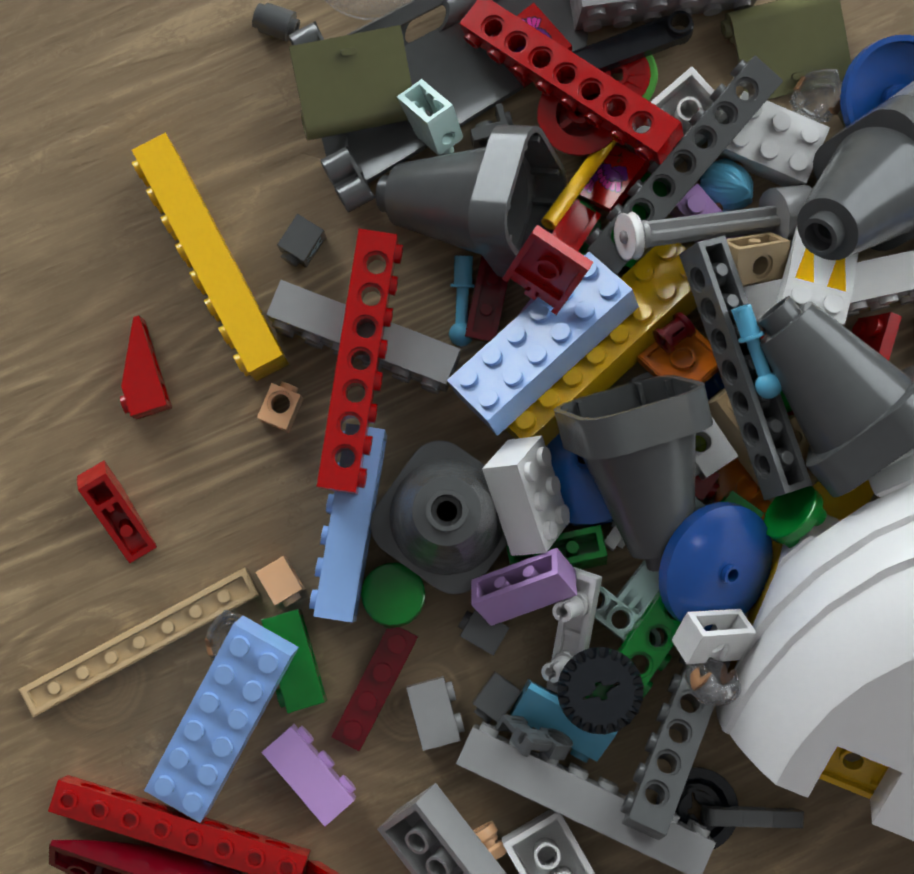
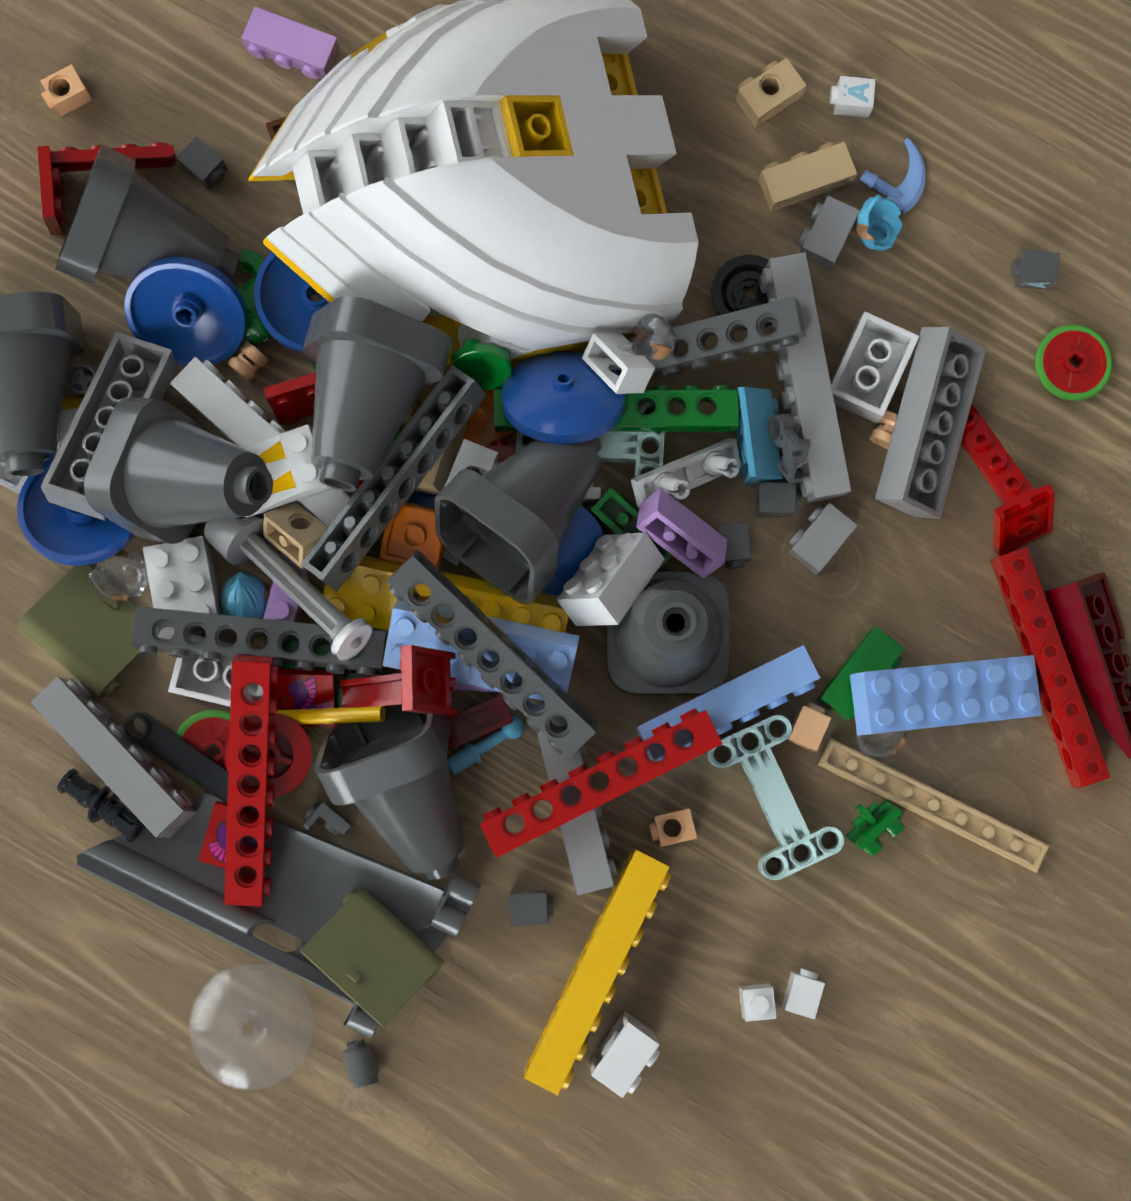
camera: 130 degrees left, 0 degrees up
(66, 416) = (803, 993): none -> white brick
(87, 373) = (757, 1002): none -> white brick
(115, 511) = (848, 899): red slope -> none
(123, 228) = (624, 1055): none -> white brick
(142, 377) = (730, 953): red slope -> none
(161, 576) = (872, 823): none -> green hips
(240, 510) = (776, 799): none -> light aqua beam
(310, 773) = (935, 600): lavender brick -> none
(374, 687) = (834, 598): dark red plate -> none
(393, 595) = (756, 633): green tile -> none
(439, 130) = (360, 859): light aqua torso -> none
(548, 350) = (420, 570): none -> dark grey brick
(579, 681) = (721, 441): black gear -> none
(674, 332) = (395, 554): dark red bush -> none
(752, 817) = (726, 247): dark grey piece -> none
(767, 383) = (398, 451): medium azure pin -> none

